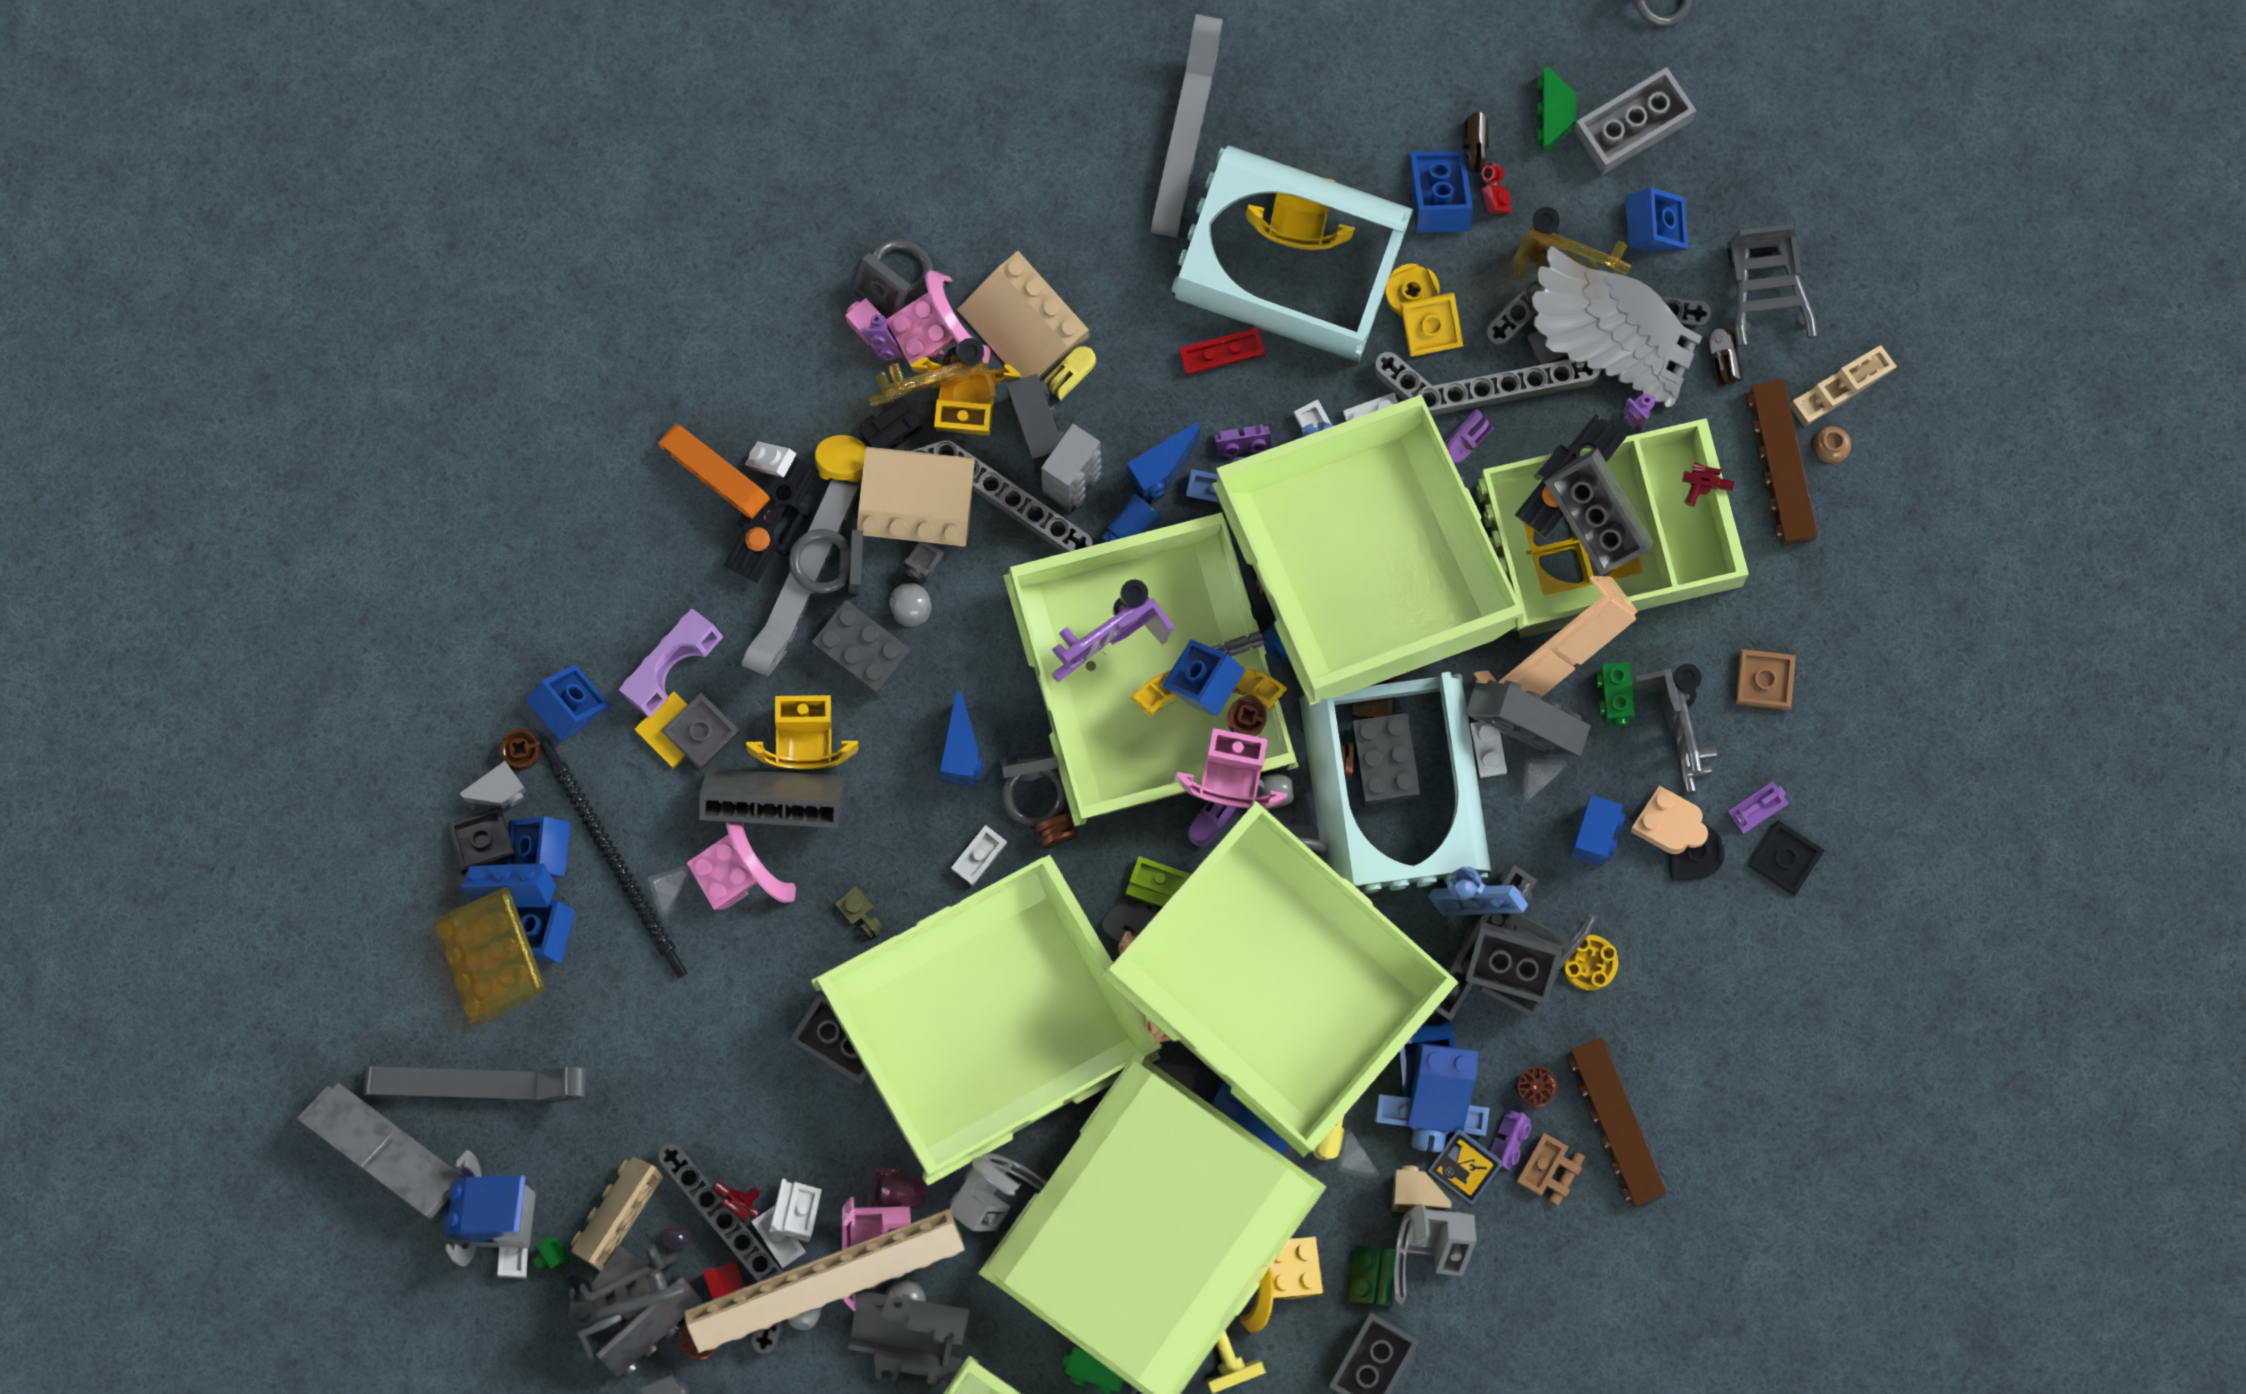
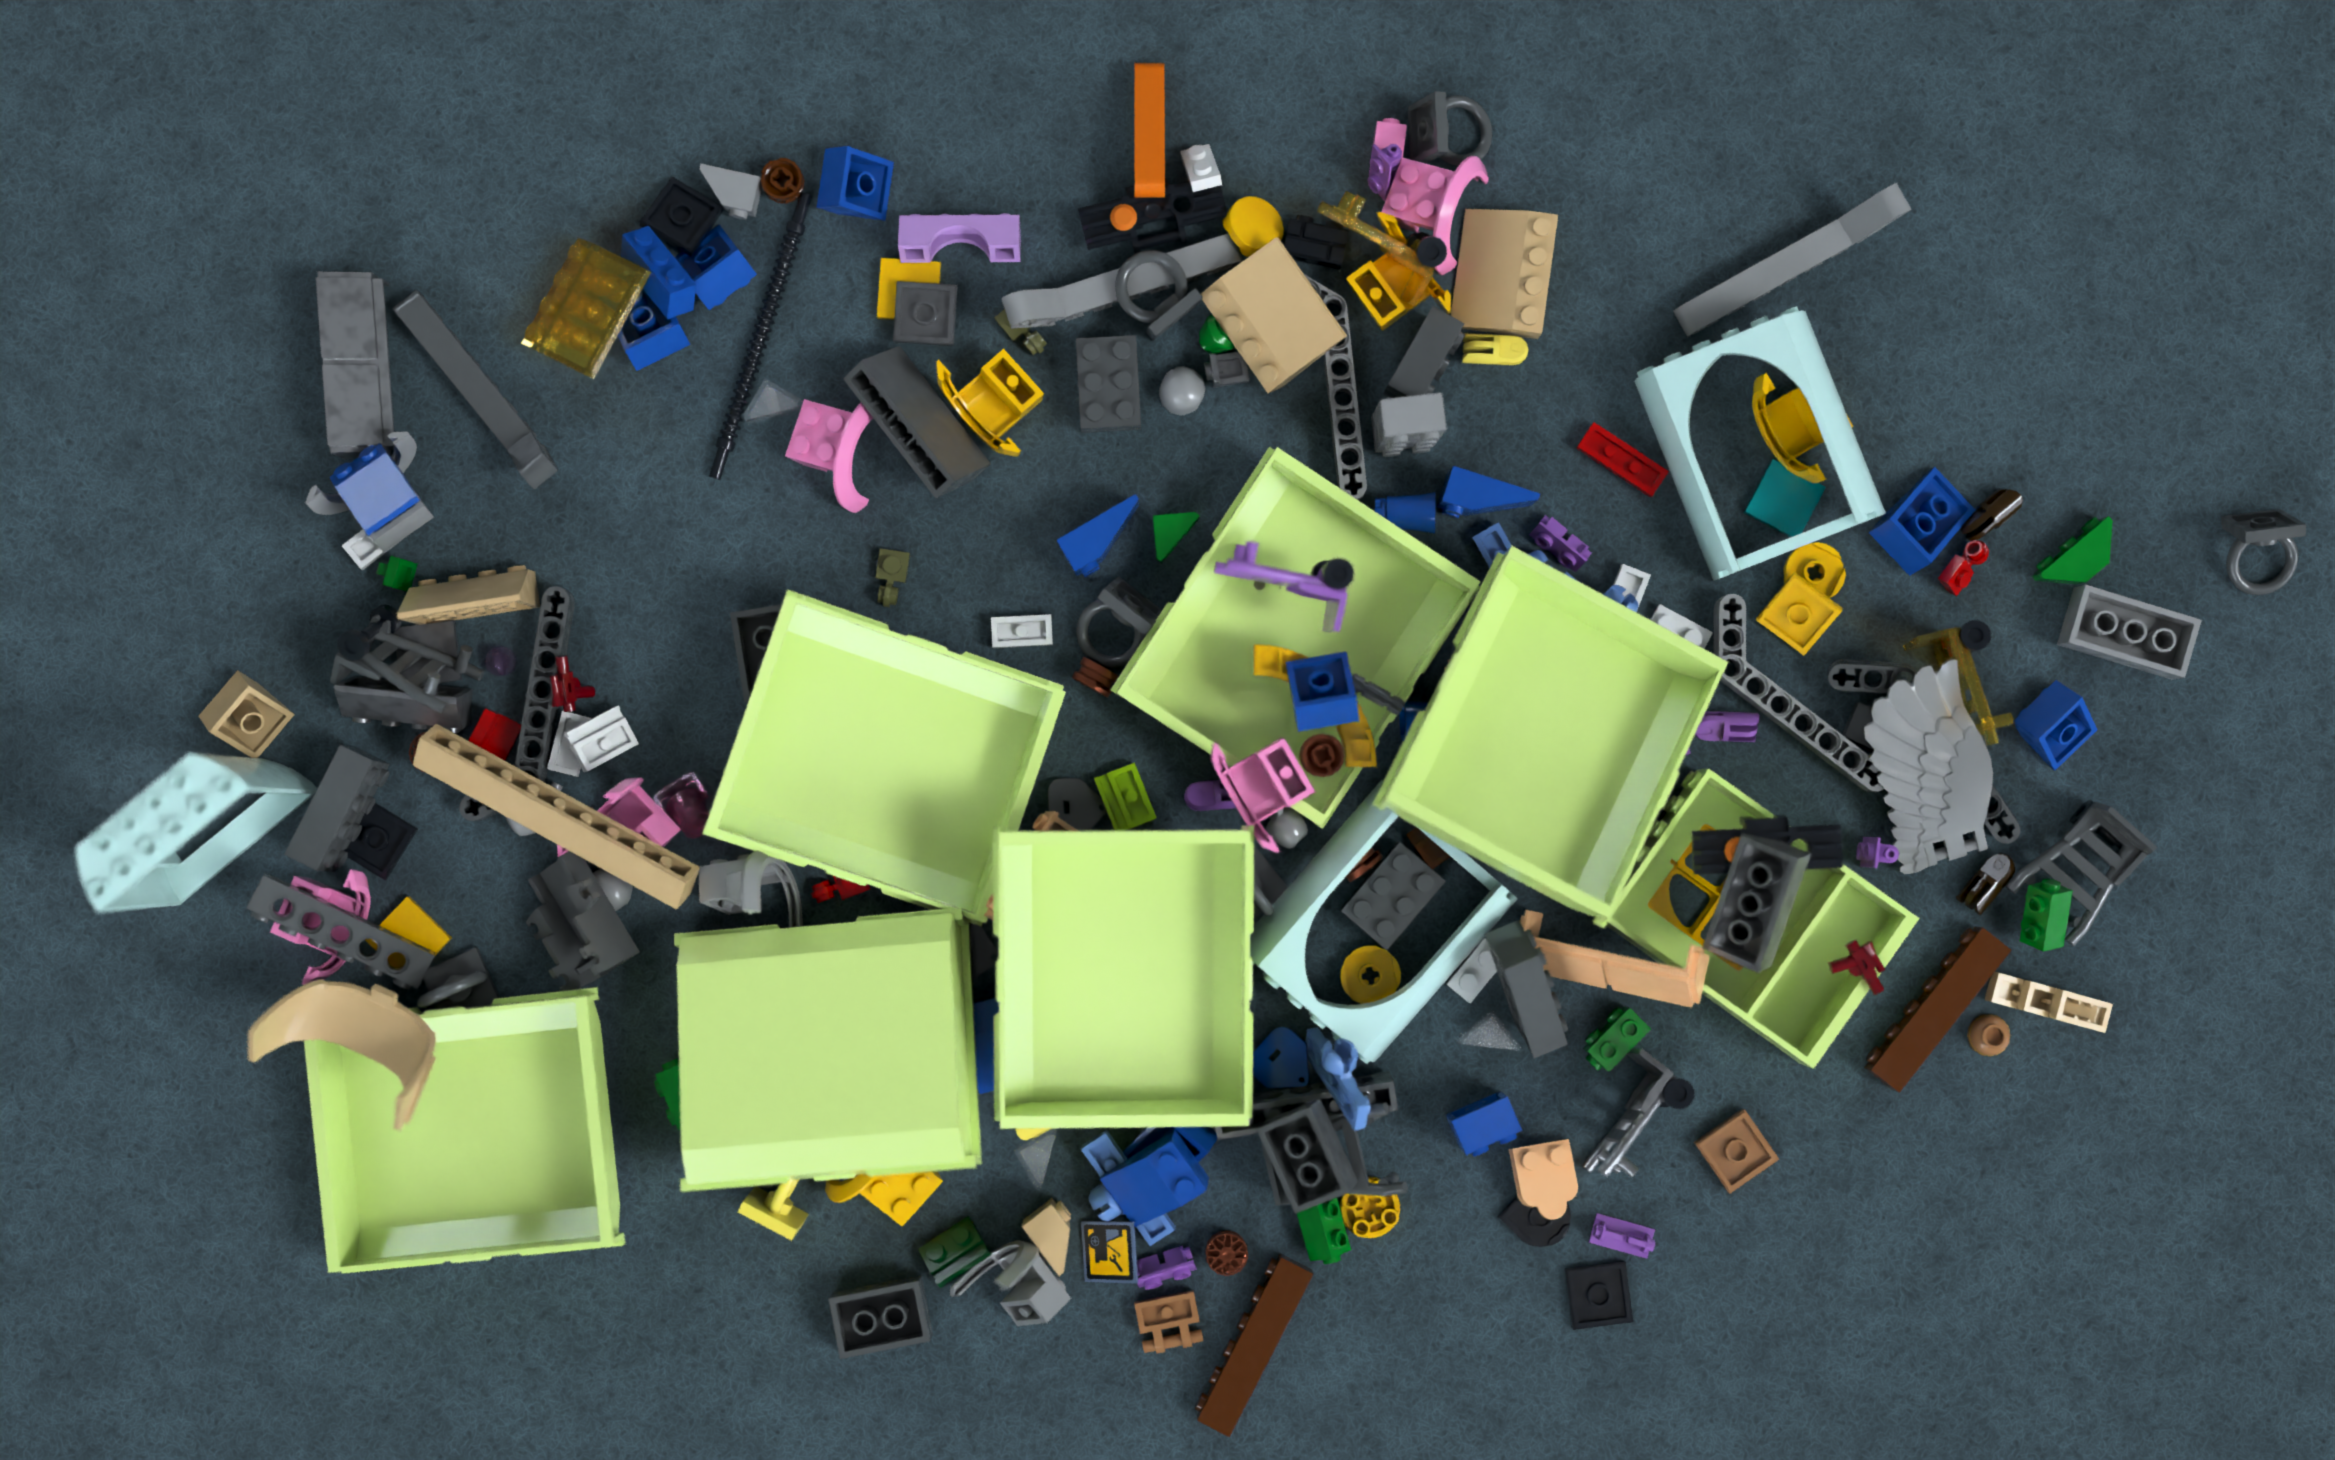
camera: 45 degrees right, 10 degrees up
(757, 681) = (1033, 342): none -> olive plate
(893, 550) = (1213, 337): none -> green cone
(999, 694) = (1170, 530): none -> green slope
(1046, 1128) = (847, 889): none -> red plate
(1345, 269) = (1784, 500): none -> teal tile
(1423, 808) = (1356, 964): none -> yellow plate
(1442, 931) = (1288, 1066): none -> blue piece
(1576, 1004) = (1324, 1232): none -> green brick
(1779, 336) = (2046, 915): none -> green brick

